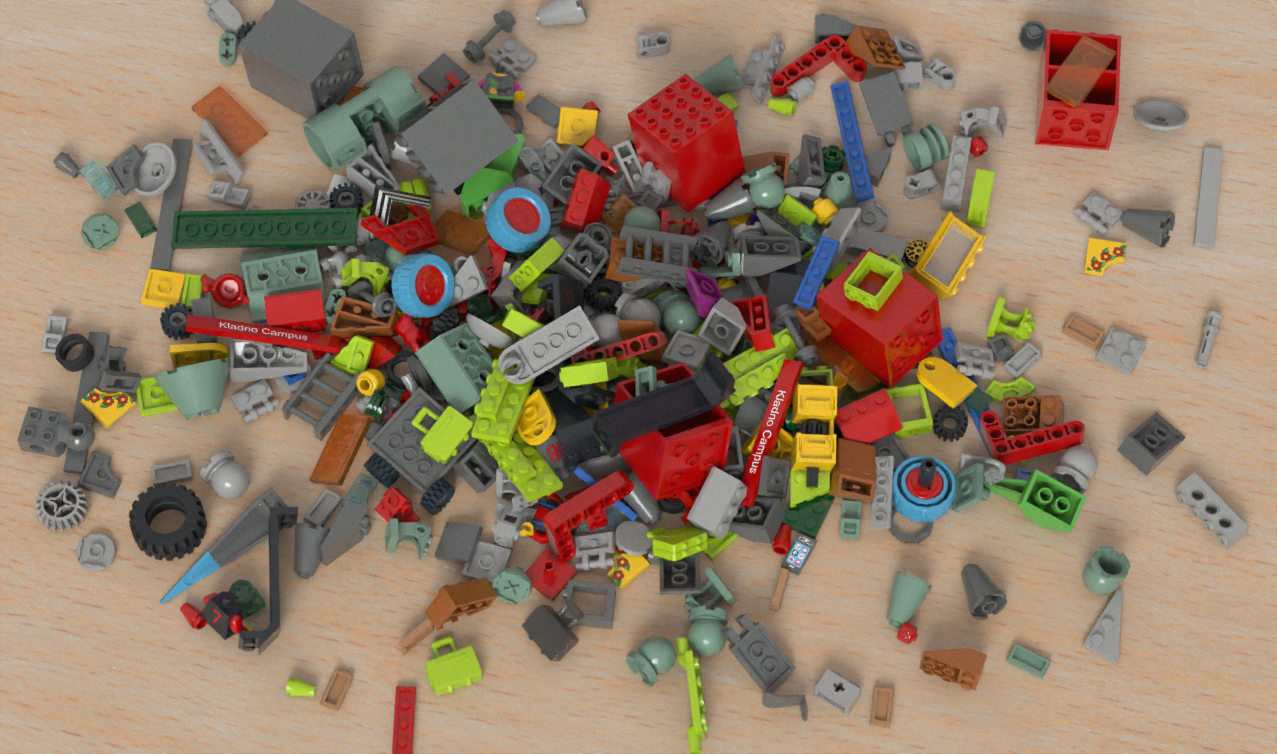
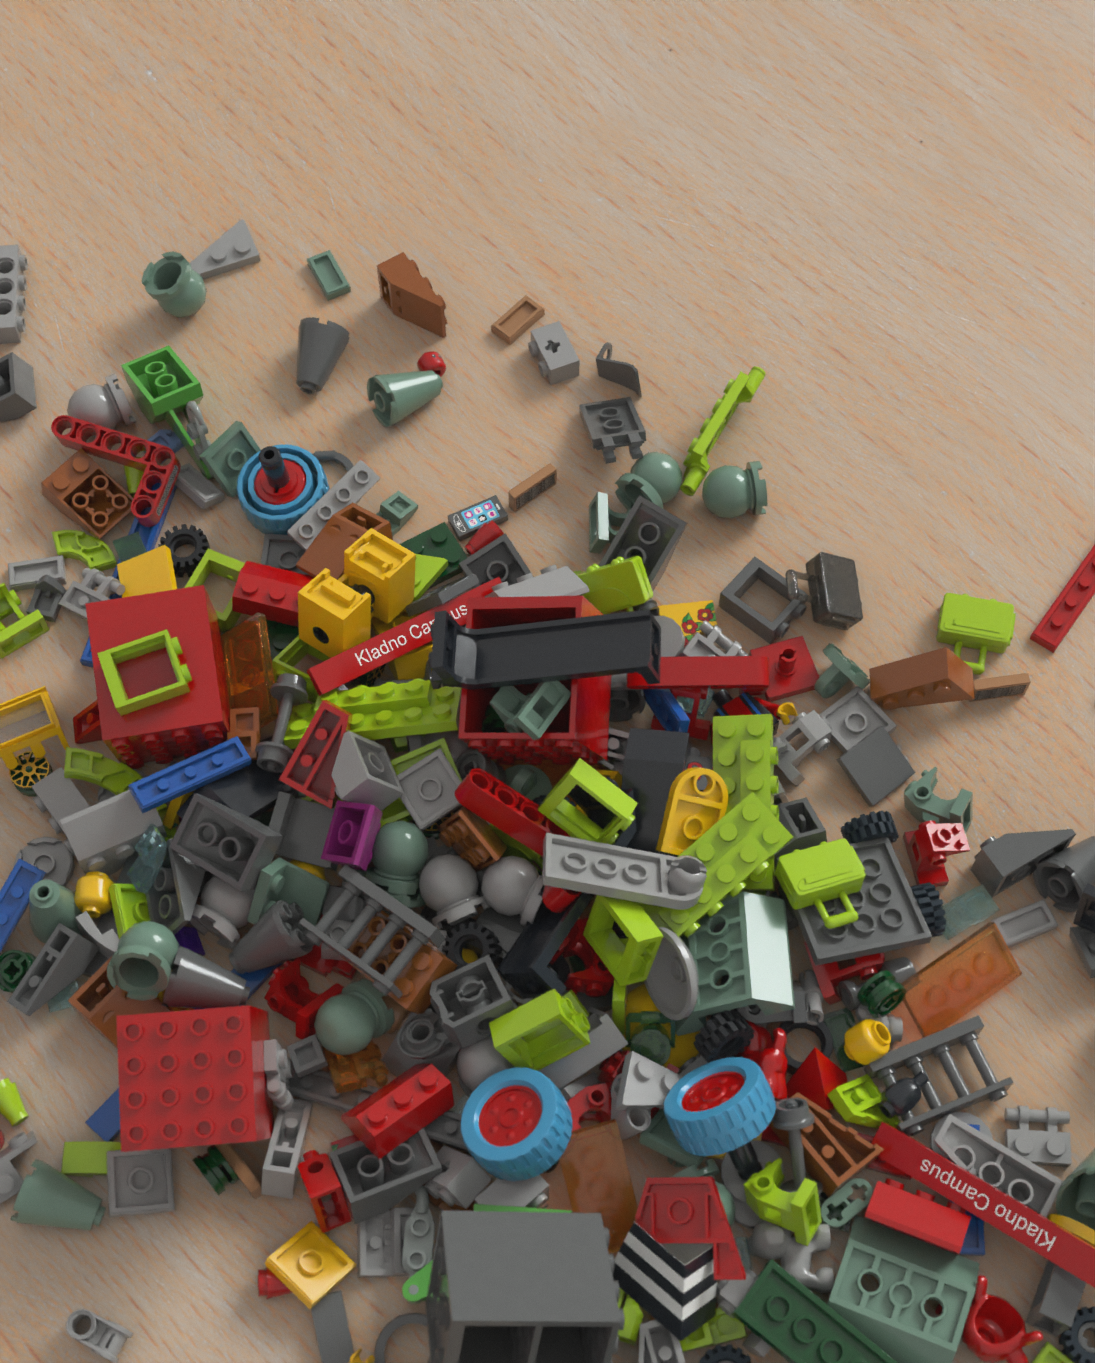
camera: 145 degrees left, 0 degrees up
(336, 369) = (902, 1095): none -> black plant
(617, 187) = (328, 1127): dark grey animal -> none

